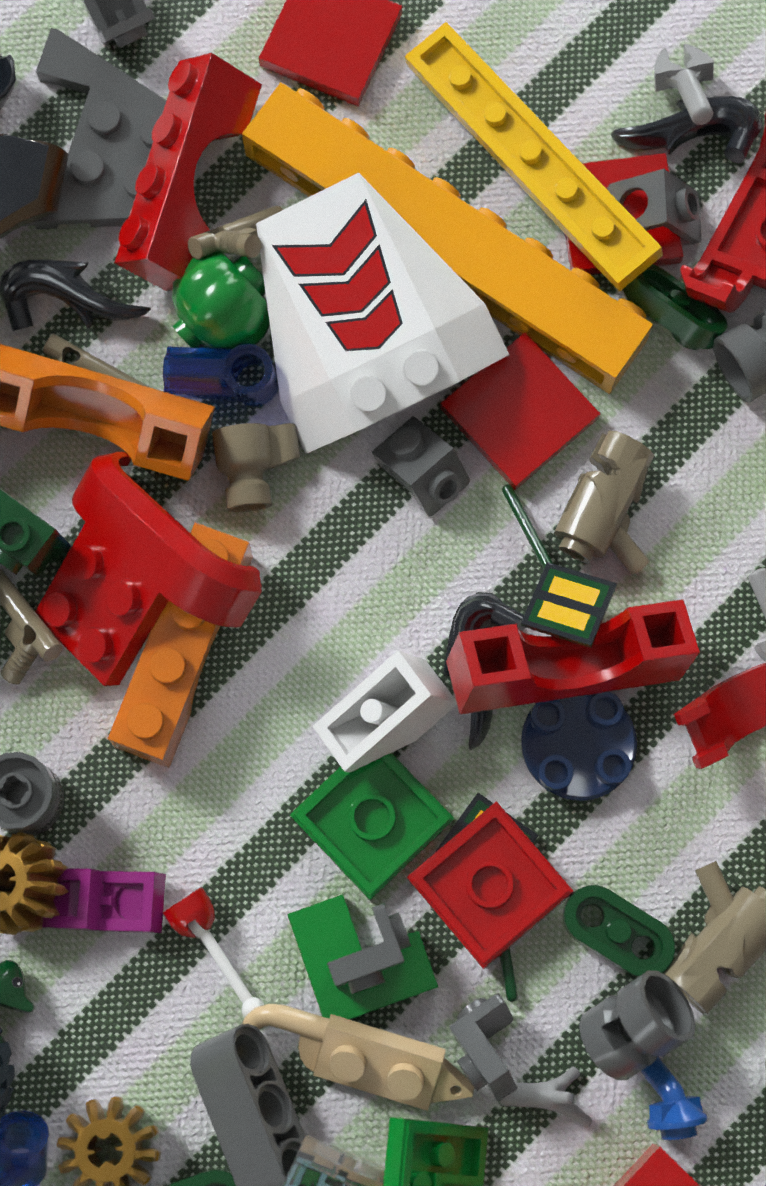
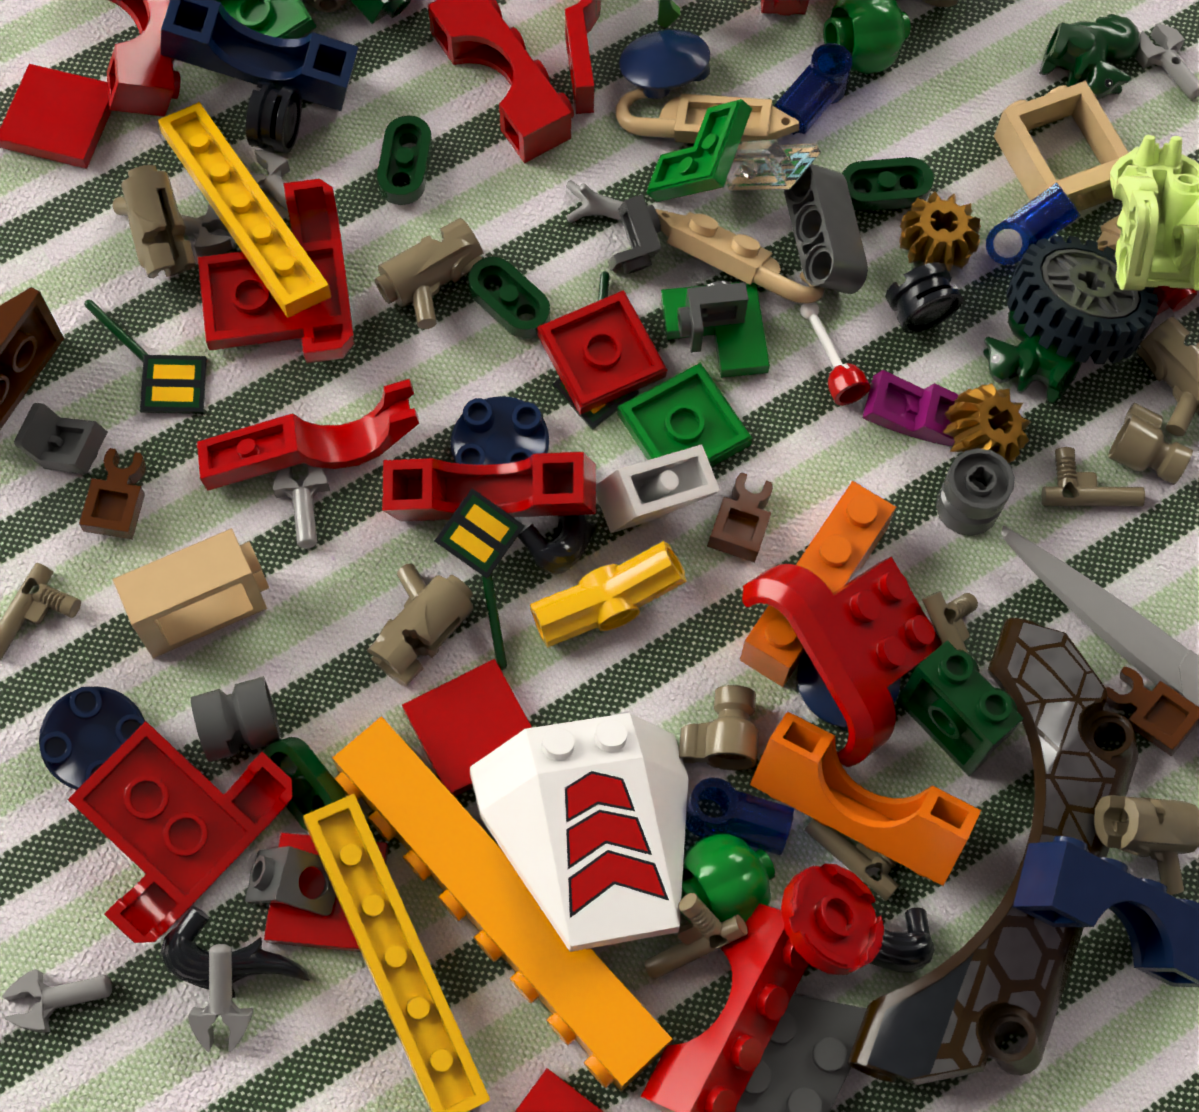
camera: 170 degrees left, 10 degrees down
(104, 268) = (832, 919): none -> red tile
(119, 1047) = (924, 297): none -> black wheel
(281, 701) = (741, 521): none -> reddish brown plate
(409, 579) = (608, 595): none -> yellow piece
(422, 465) = (572, 690): dark grey bracket -> none
(637, 1025) = (516, 218): dark grey wheel -> none
(676, 1113) = (499, 166): blue plate -> none

